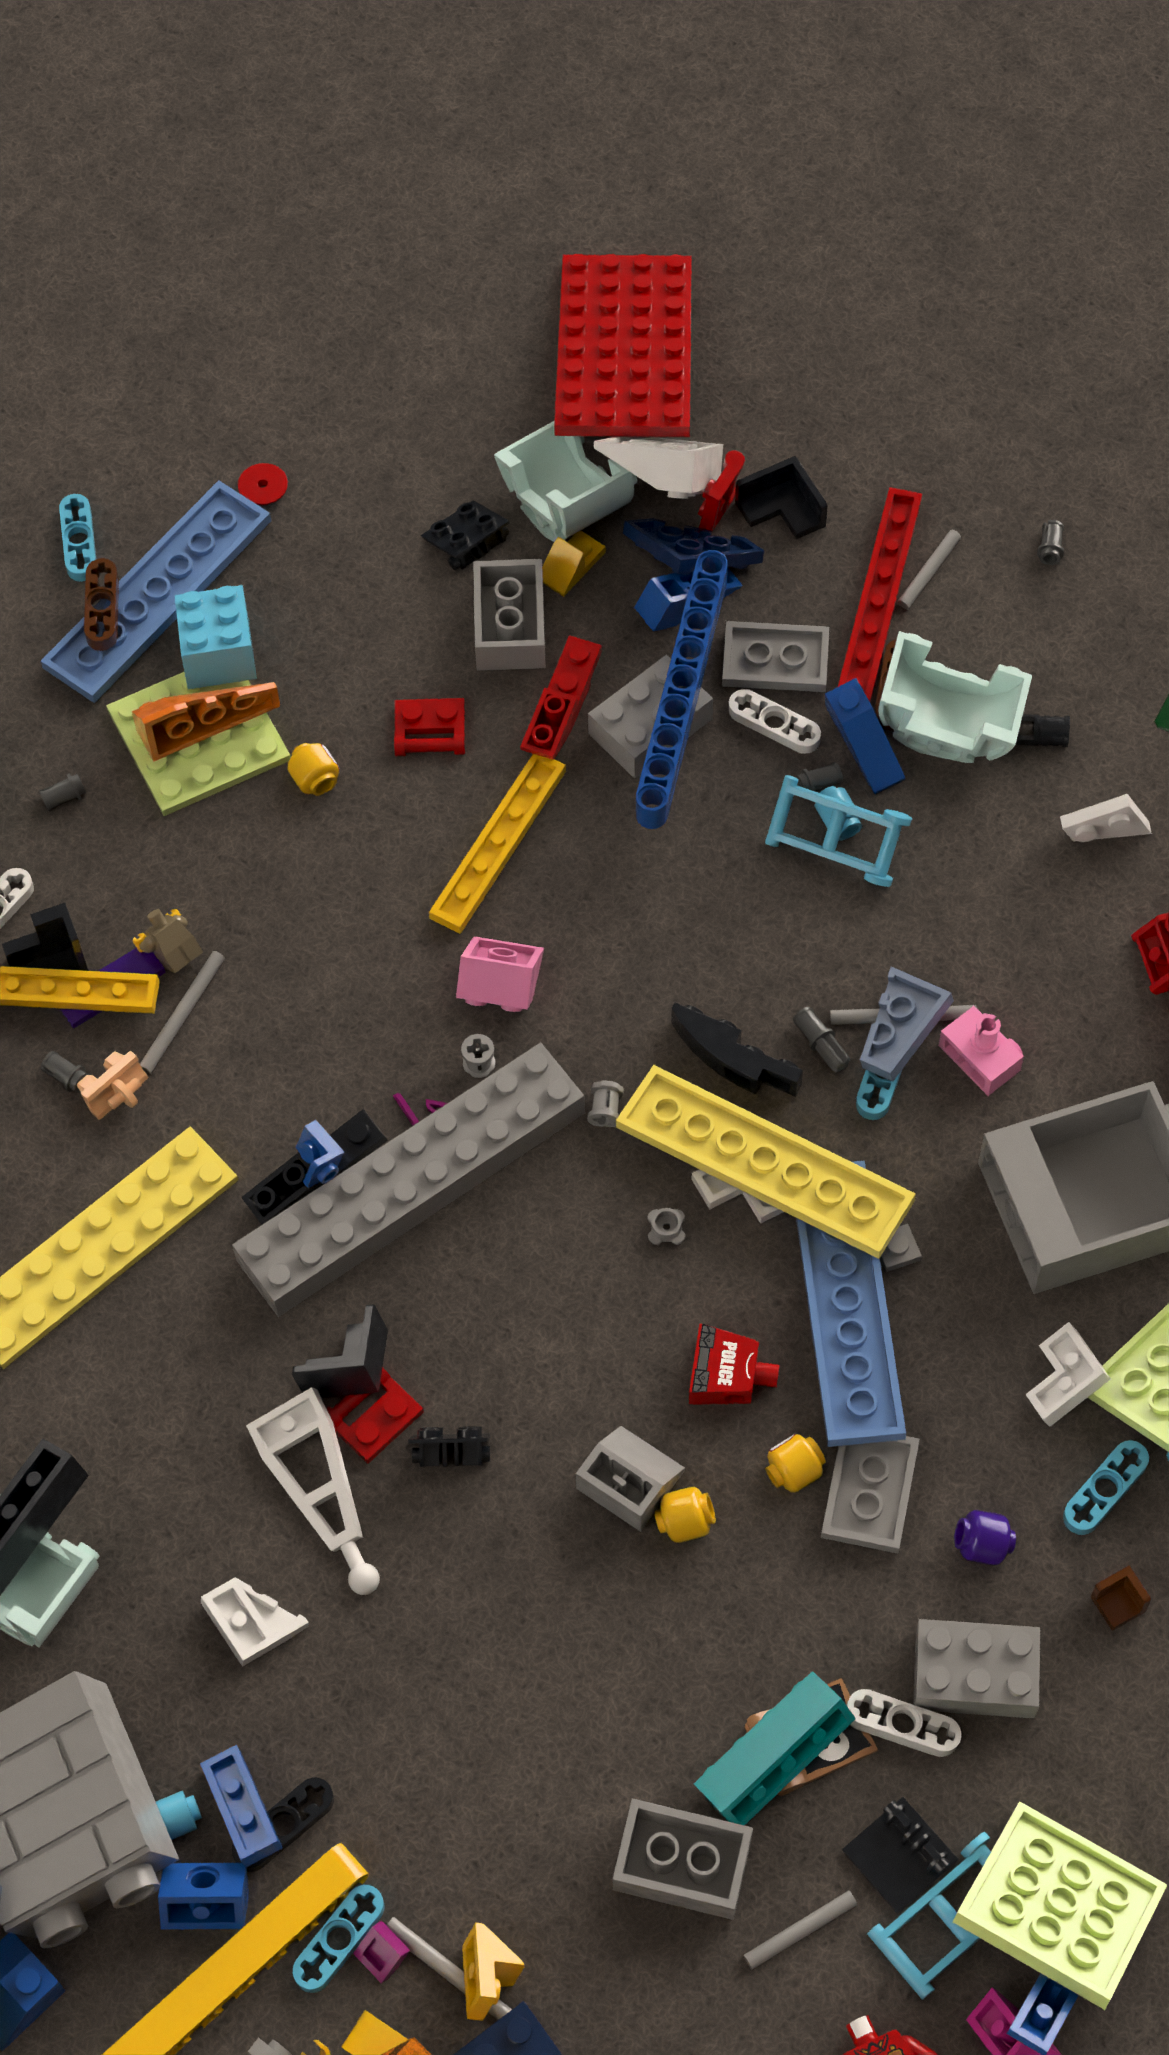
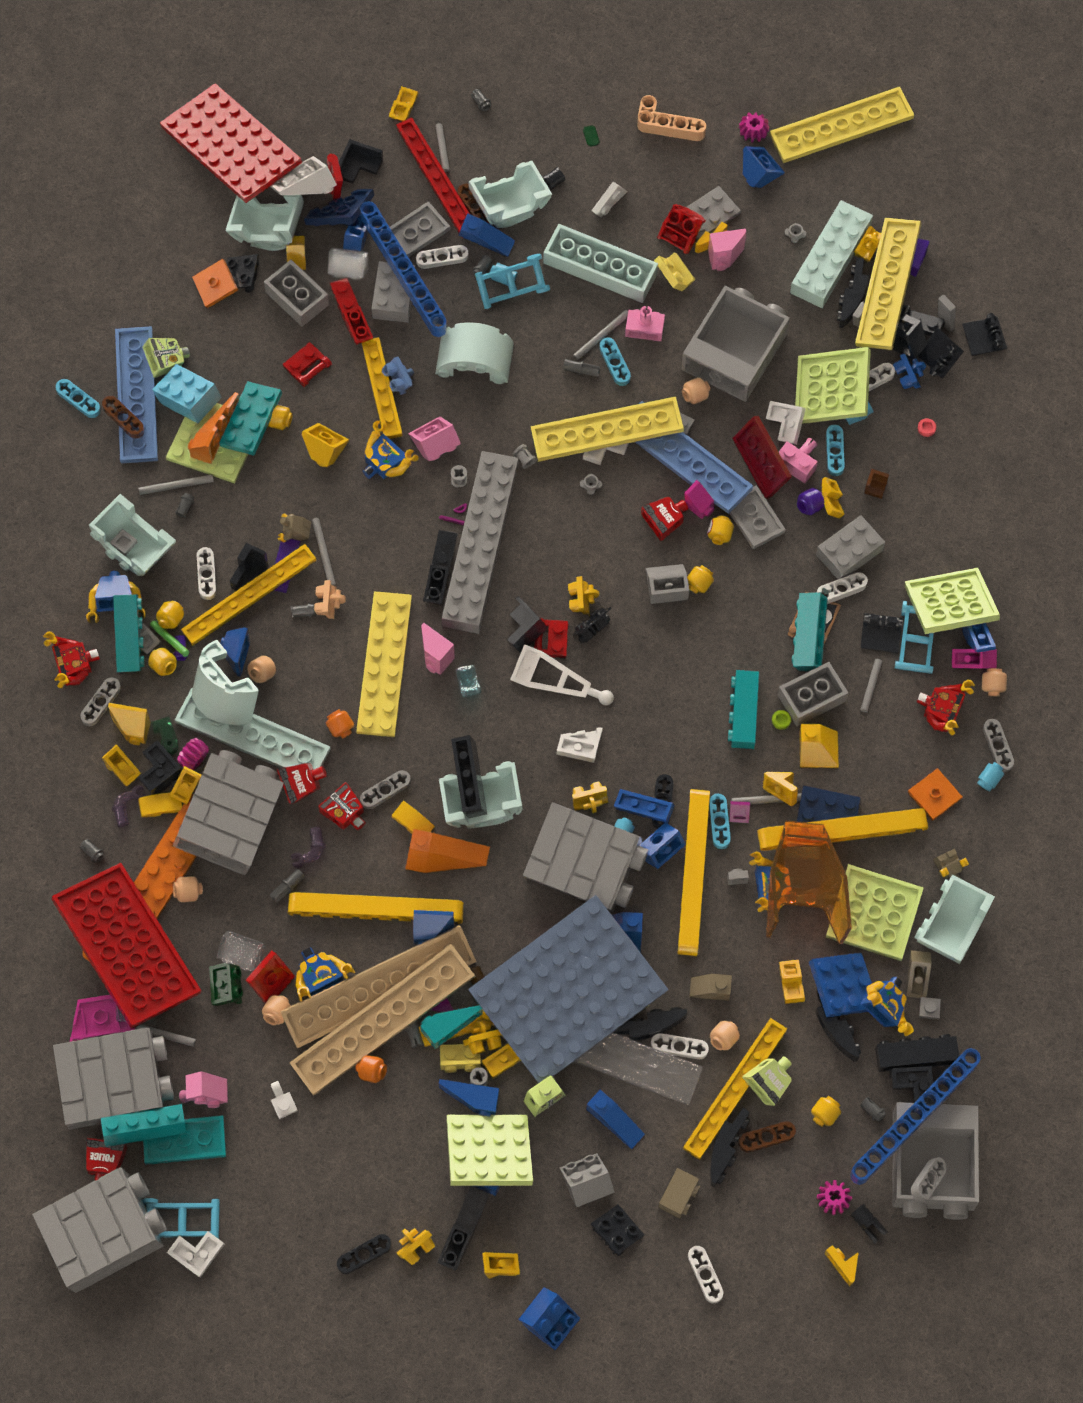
camera: 45 degrees left, 5 degrees up
(83, 754) = (176, 484): none -> light grey bar
(175, 1285) = (437, 650): none -> bright pink slope
(176, 1720) = (591, 798): none -> yellow hips
(183, 1375) = (468, 681): none -> clear light blue bracket
(244, 561) = (164, 355): none -> yellowish green torso
(263, 475) = (133, 311): red piece -> none
(266, 738) = (250, 418): none -> teal plate
(320, 1152) = (442, 557): blue bracket -> none
(334, 854) = (323, 444): none -> yellow slope
(401, 939) = (384, 456): none -> torso
(414, 519) = (215, 283): none -> orange plate
(483, 1389) = (585, 593): none -> yellow hips
(543, 841) = (399, 374): none -> medium blue hips
(552, 1787) = (744, 709): none -> teal brick
(598, 1857) = (781, 719): none -> lime tile
(612, 1957) = (818, 746): none -> yellow slope
(619, 625) = (348, 263): none -> clear slope
(685, 893) = (475, 349): none -> light aqua cylinder
(721, 1049) = (546, 401): black slope -> none
(800, 1386) = (699, 500): none -> dark pink slope
(903, 1022) = (608, 336): sand blue wing -> none
(927, 472) = (403, 104): none -> yellow slope
(964, 1212) = (696, 390): none -> light nougat head
(967, 1400) = (762, 457): none -> dark red plate
(1000, 905) = (600, 263): none -> light aqua brick
(1023, 1452) = (798, 460): none -> bright pink brick
(1028, 1552) = (831, 494): none -> yellow slope
(1105, 1005) = (675, 271): none -> light yellow bracket

